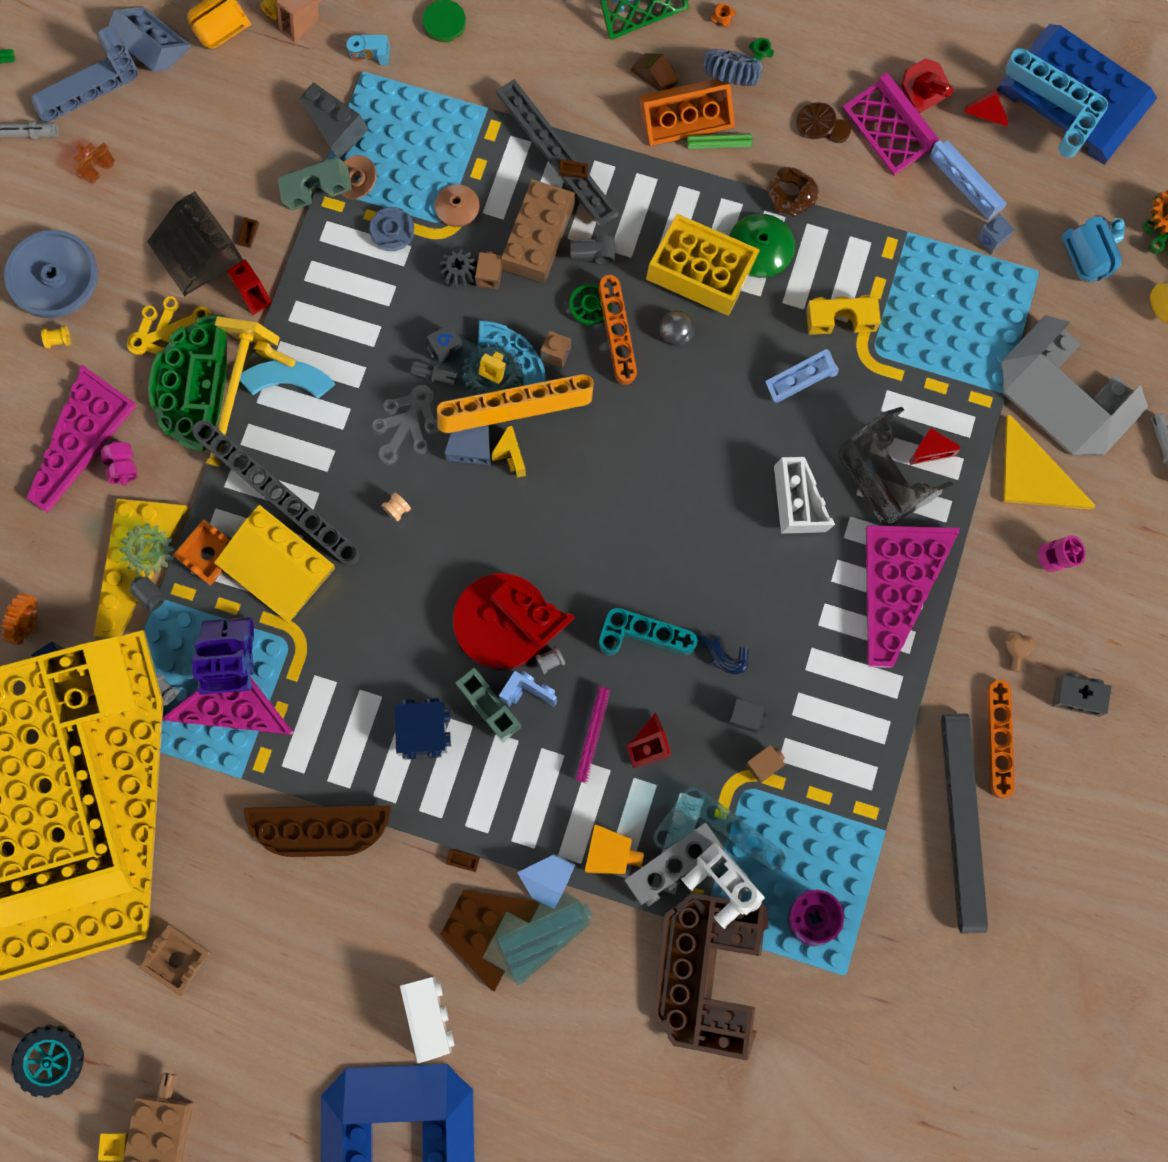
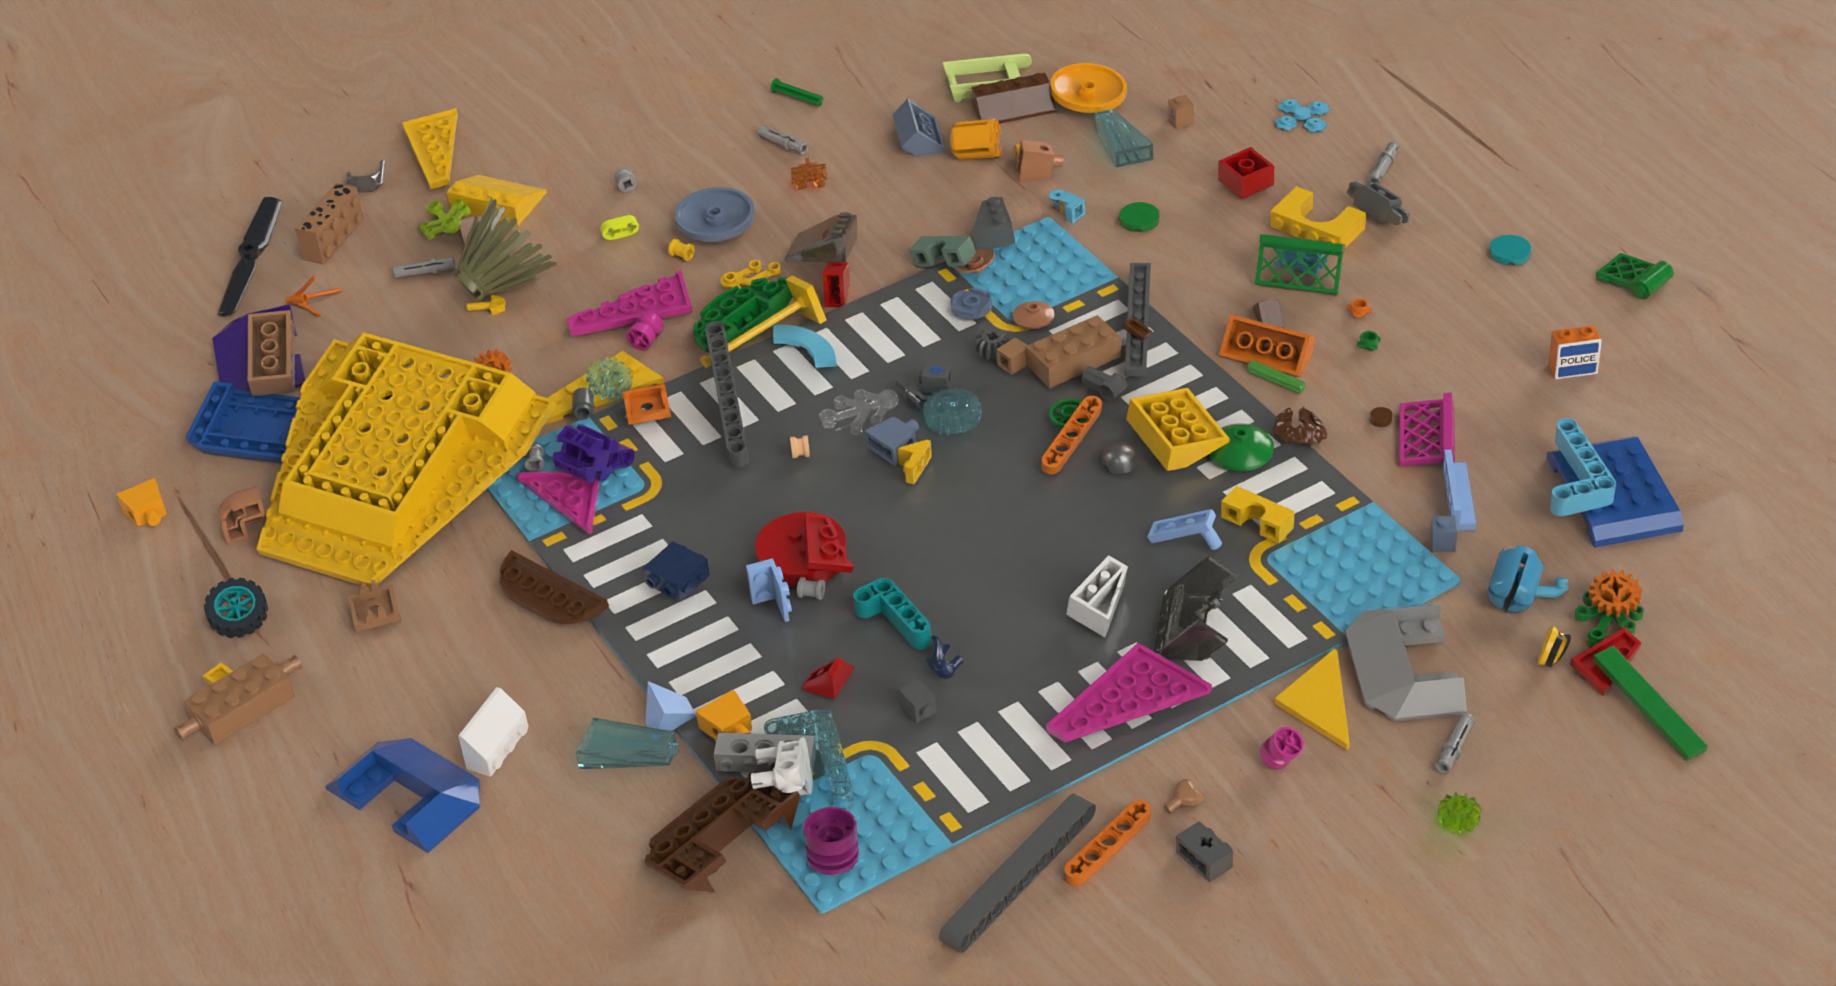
camera: 45 degrees right, 35 degrees down
(89, 82) = (856, 136): sand blue beam -> none
(247, 232) = (871, 261): reddish brown piece -> none
(266, 351) = (809, 323): yellow bar -> none
(274, 564) = (683, 429): yellow slope -> none
(462, 860) = (622, 673): reddish brown piece -> none
(475, 924) = (579, 710): reddish brown wing -> none
(488, 705) = (736, 588): sand green arch -> none
(492, 367) = (950, 395): yellow tile -> none
(495, 332) = (989, 421): medium azure tile -> none
(514, 403) = (946, 428): light orange beam -> none
(555, 349) = (1012, 420): medium nougat brick -> none
(591, 735) = (793, 648): dark pink axle -> none
(732, 67) = (1326, 331): sand blue gear -> none
(766, 763) = (900, 737): medium nougat brick -> none
(816, 120) = (1368, 401): reddish brown wheel -> none
(925, 84) = (1481, 421): red piece -> none
(934, 447) = (1242, 627): red slope -> none
(989, 108) = (1524, 457): red slope -> none

